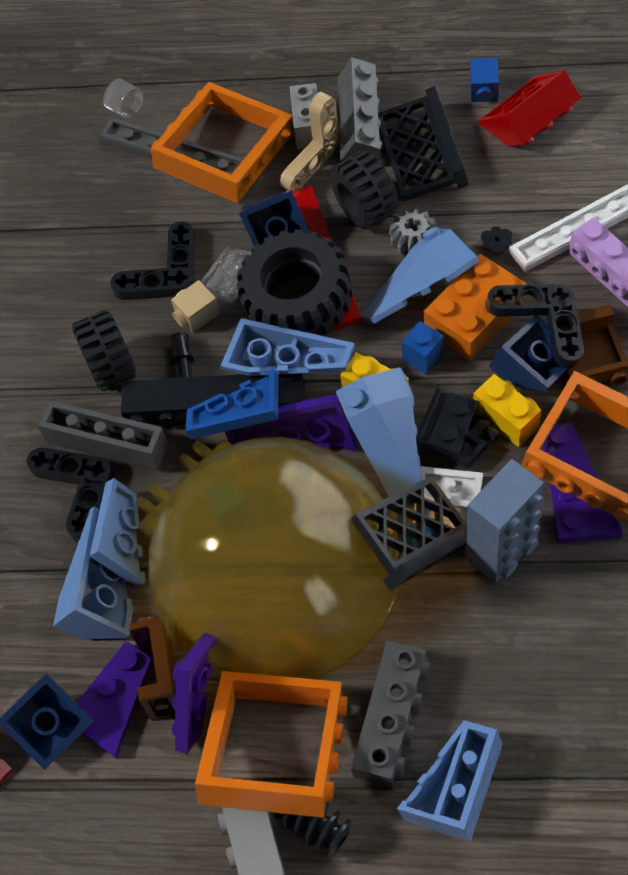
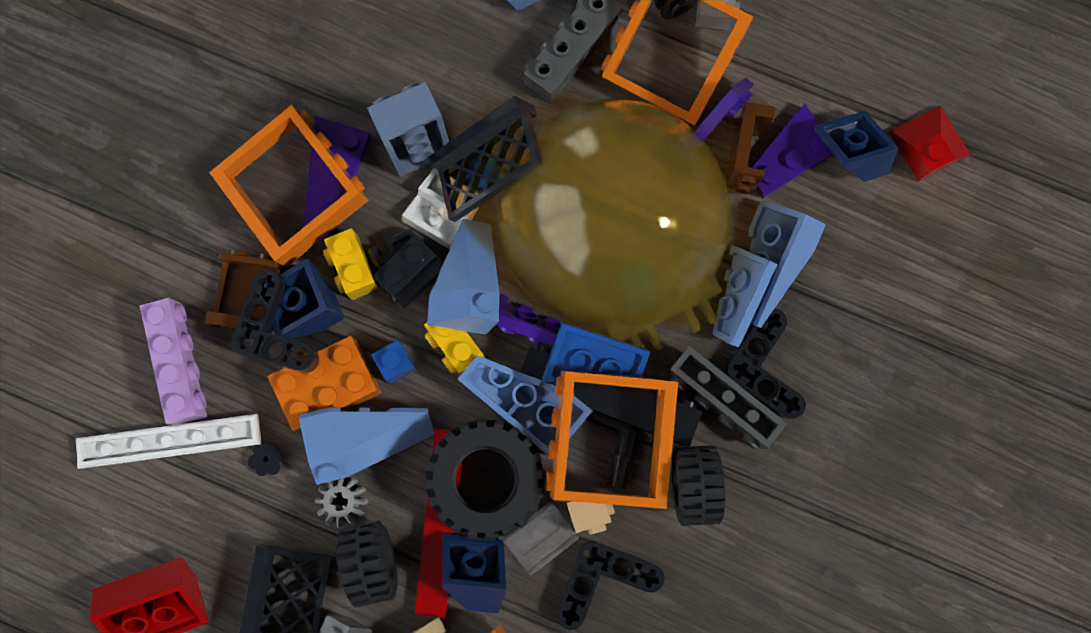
camera: 165 degrees left, 20 degrees up
(204, 388) = (661, 443): none -> orange window

